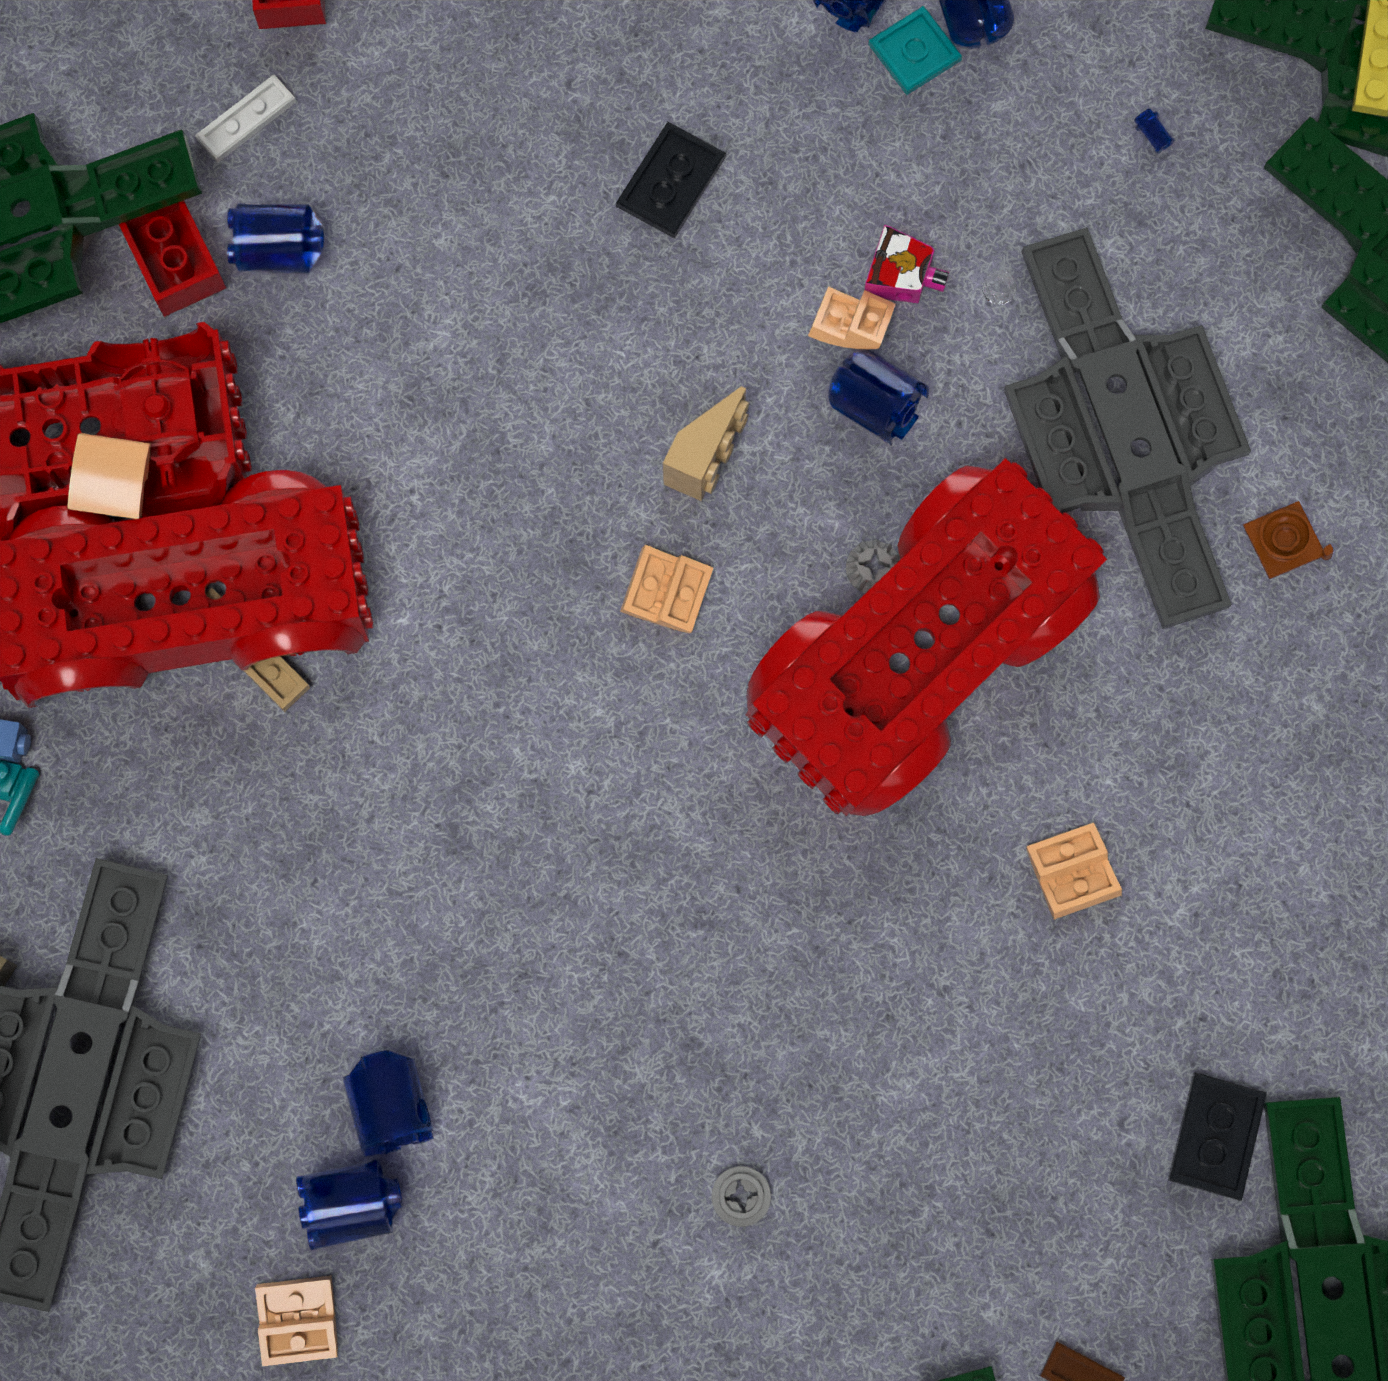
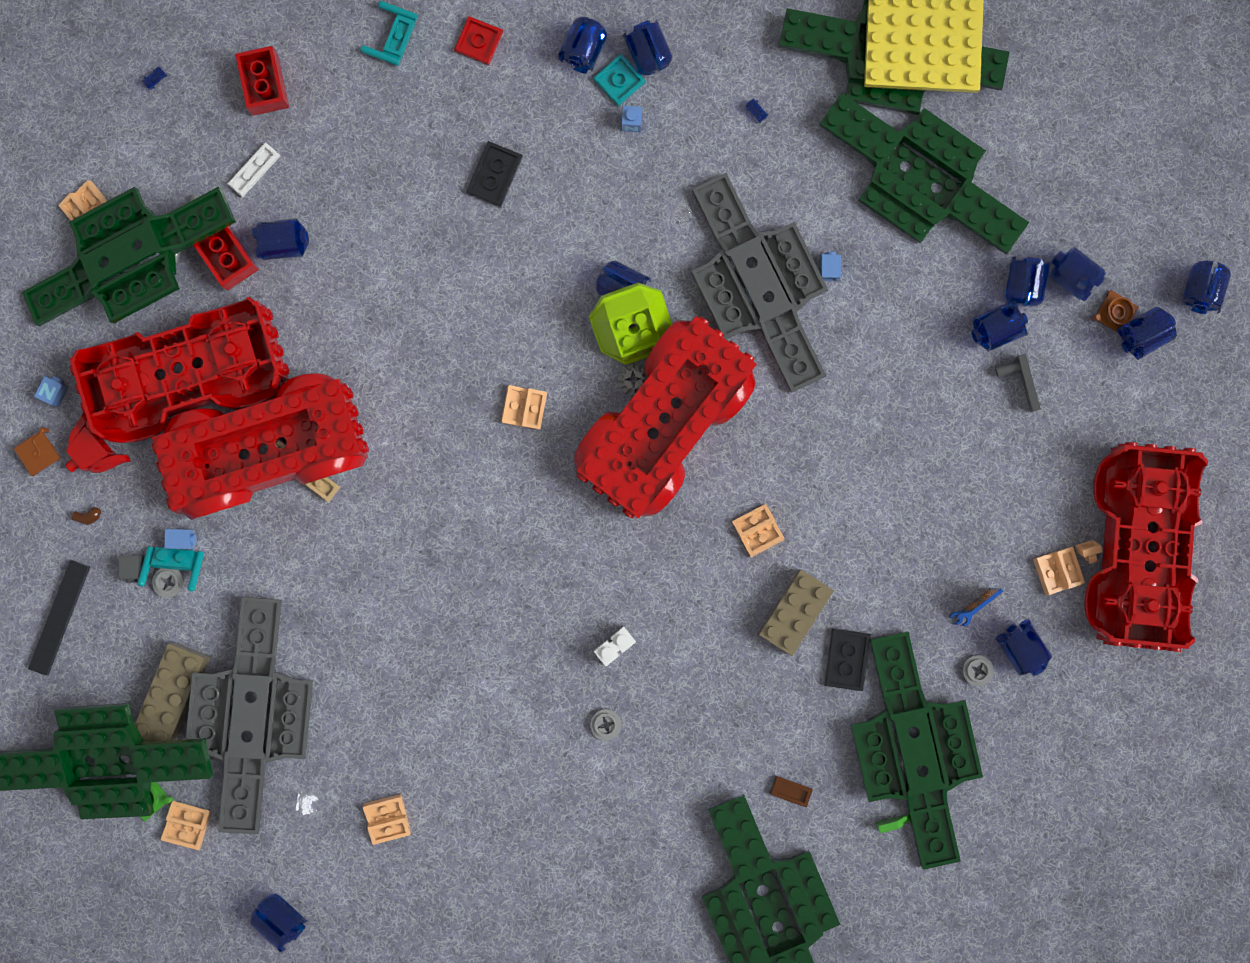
camera: 10 degrees left, 10 degrees up
(108, 476) = (211, 391): light nougat slope -> none
(145, 1266) = (304, 803): none -> clear tile
(348, 1204) = (403, 759): clear blue cylinder -> none
(387, 1103) = (415, 704): clear blue cylinder -> none
(703, 444) = (530, 329): tan slope -> none
(764, 1053) = (621, 642): none -> white piece
(852, 321) = (604, 244): light nougat slope -> none
(862, 435) = (625, 307): none -> lime piece
(903, 268) = (628, 209): torso -> none
(929, 115) = (631, 118): none -> medium blue brick
(1128, 1030) = (795, 612): none -> dark tan brick
(1259, 413) = (830, 266): none -> medium blue brick
(1285, 540) = (851, 335): dark orange hat -> none

